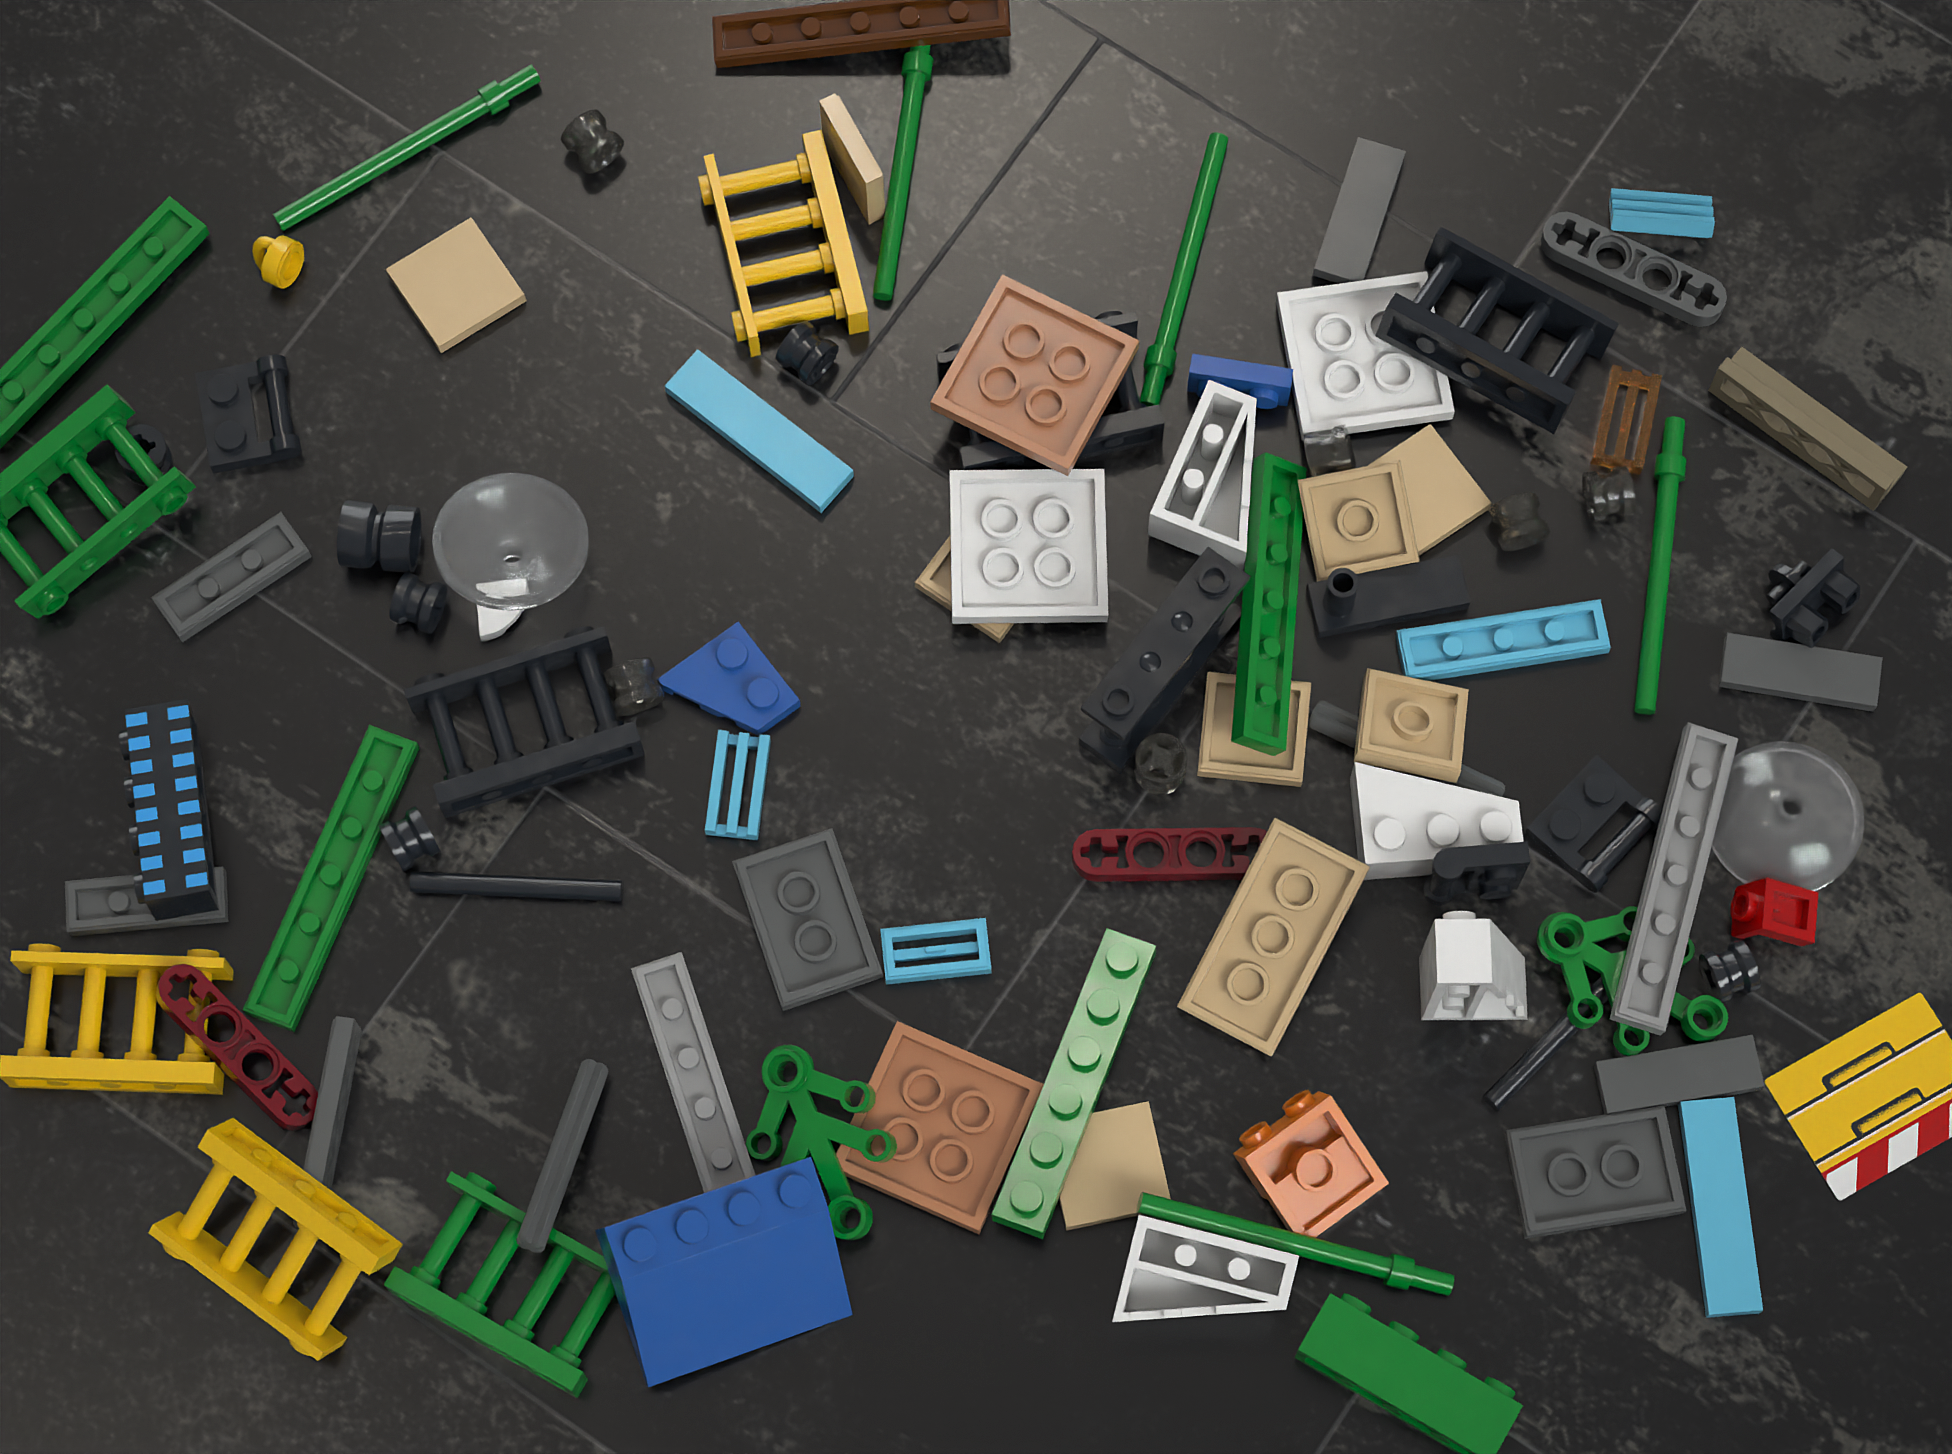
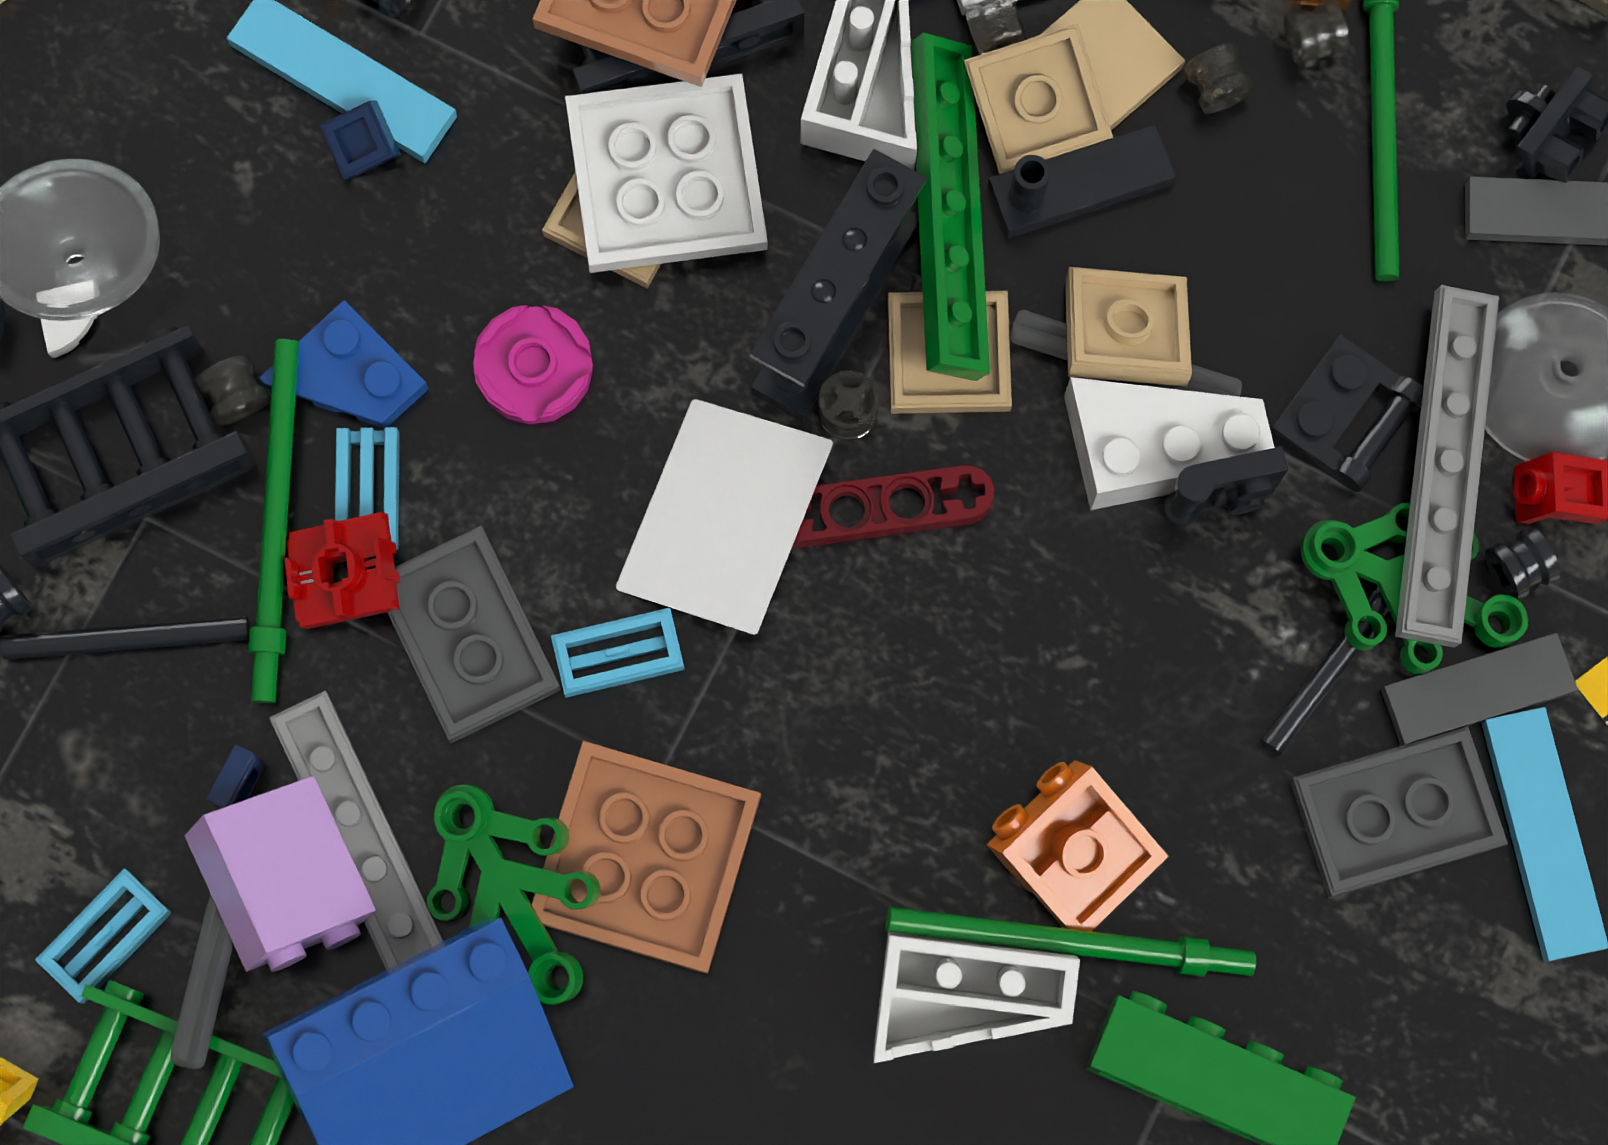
camera: 10 degrees left, 5 degrees up
(479, 1152) = (121, 952): none -> medium azure tile
(597, 1018) = (236, 778): none -> dark blue tile
(626, 1100) = (280, 875): none -> lavender brick
(637, 900) = (268, 638): none -> green bar
(734, 858) = (370, 567): none -> red piece
(768, 486) = (360, 139): none -> dark blue tile
(893, 696) = (532, 364): none -> dark pink tile
(1042, 845) = (724, 516): none -> white sticker
(1074, 1084) = (794, 788): plate -> none
(1113, 1168) = (843, 874): tan tile -> none
(1273, 936) = (1002, 589): tan tile -> none
(1471, 971) = (1231, 603): white wedge -> none
(1503, 641) = (1218, 217): medium azure tile -> none

